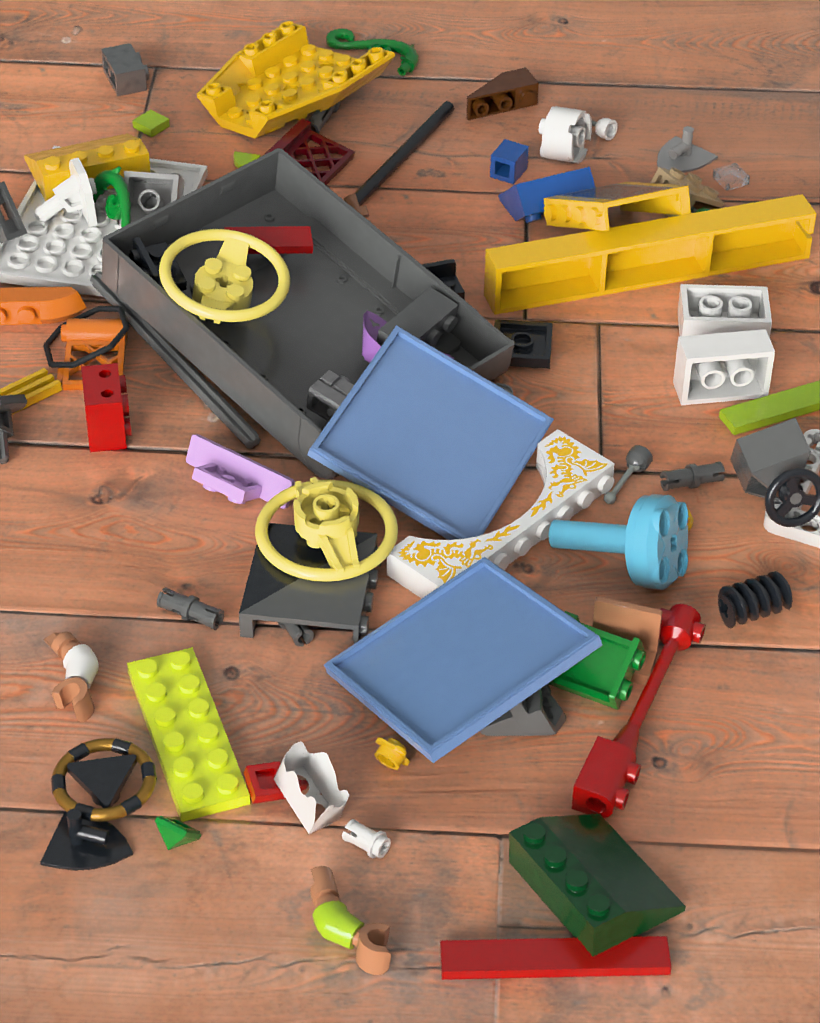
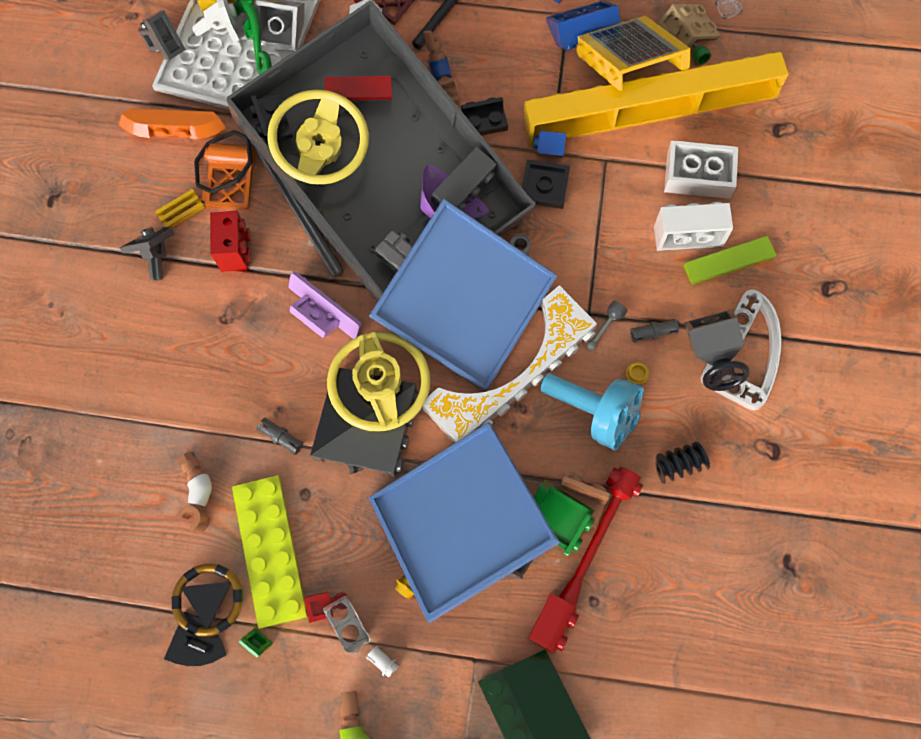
camera: 10 degrees right, 30 degrees up
(523, 302) = (550, 143): none -> blue brick

